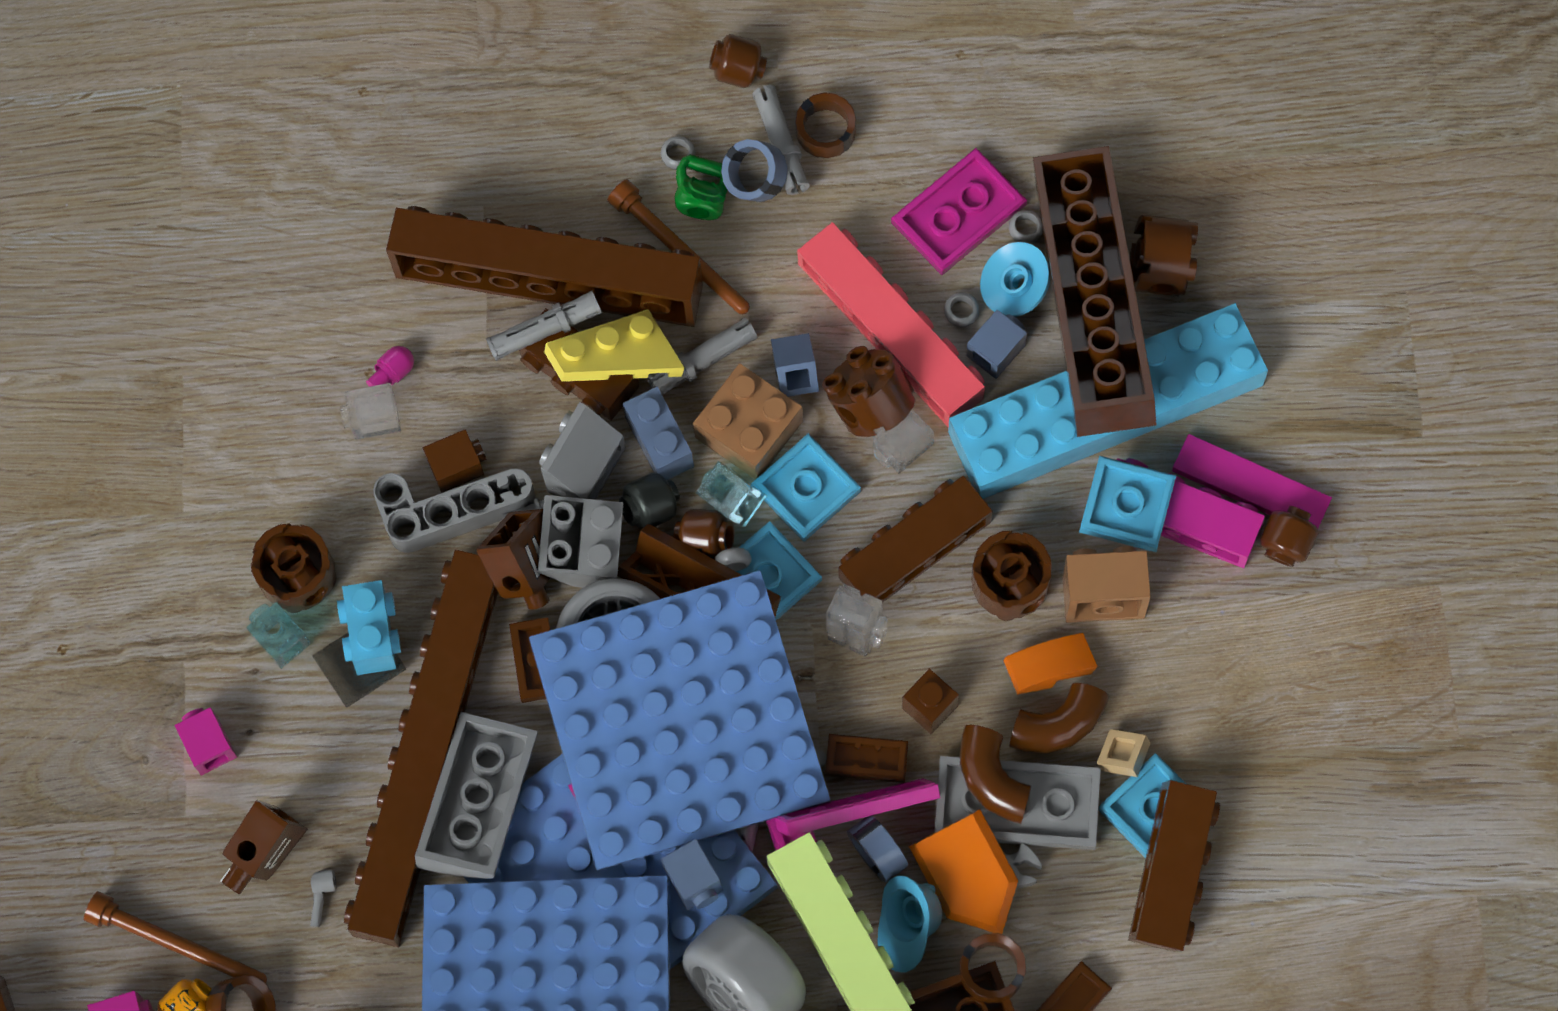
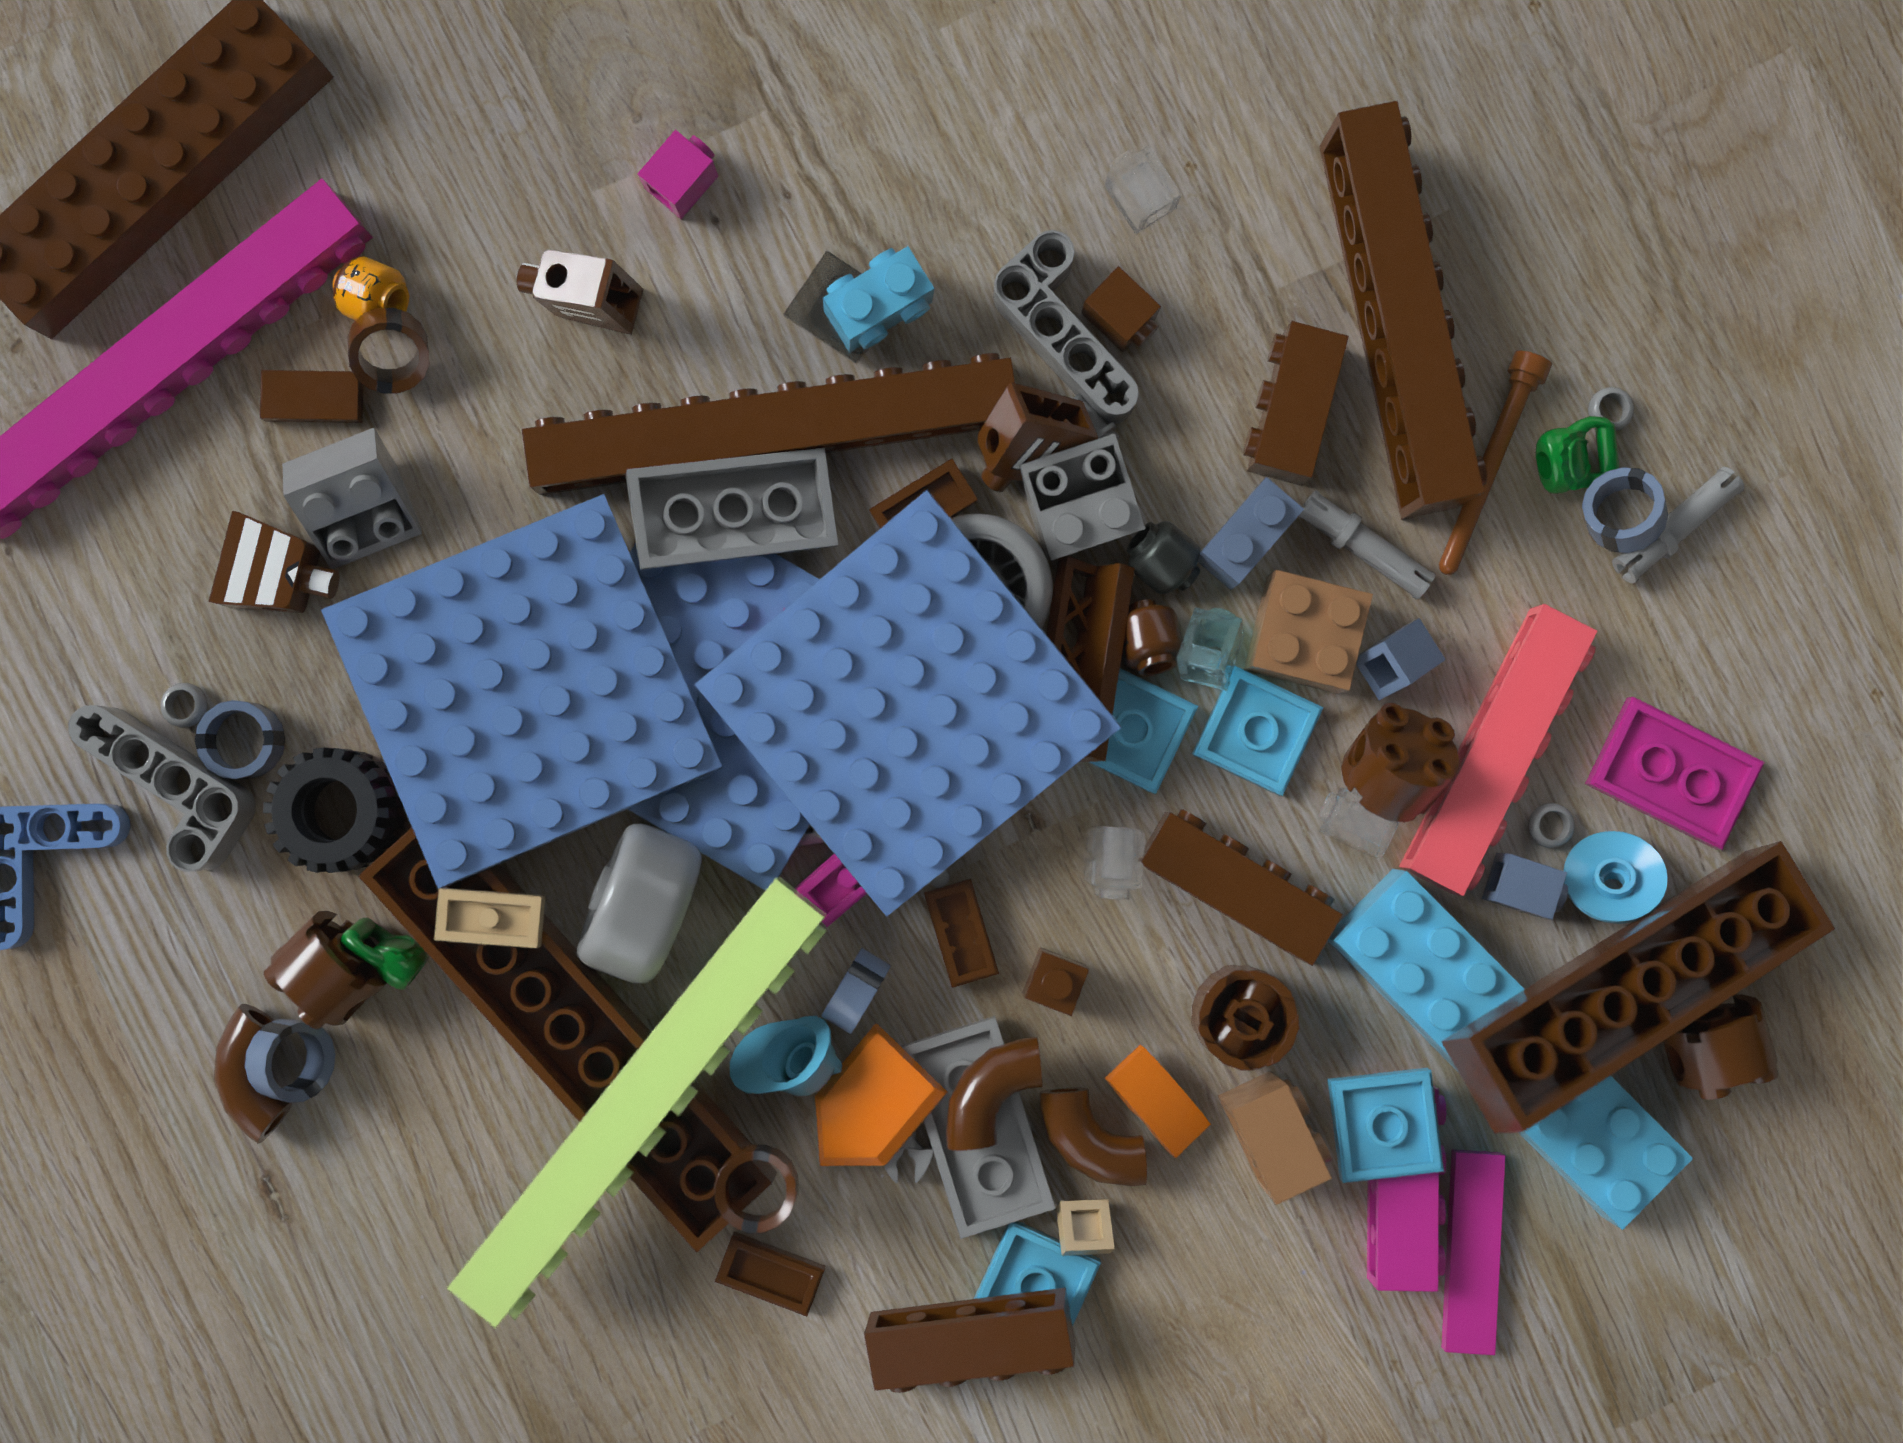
camera: 60 degrees right, 15 degrees up
(105, 912) = (444, 150): dark orange piece -> none
(284, 644) = (835, 215): clear light blue brick -> none
(293, 567) = (916, 180): reddish brown brick -> none
(321, 883) = (572, 376): light grey hand -> none
(392, 366) = (1206, 189): dark pink cylinder -> none
(544, 325) = (1316, 336): light grey pin -> none
(582, 455) = (1183, 455): light grey slope -> none
(615, 348) = (1332, 441): light yellow wing -> none
(692, 875) = (730, 797): sand blue brick -> none
(734, 558) = (1132, 685): light grey piece -> none
(737, 61) = (1758, 431): reddish brown head -> none
(822, 102) = (1750, 564): reddish brown piece -> none
(857, 807) = (893, 951): dark pink tile -> none
(1026, 214) = (1671, 861): light grey piece -> none
(1289, 536) = (1425, 1325): reddish brown head -> none

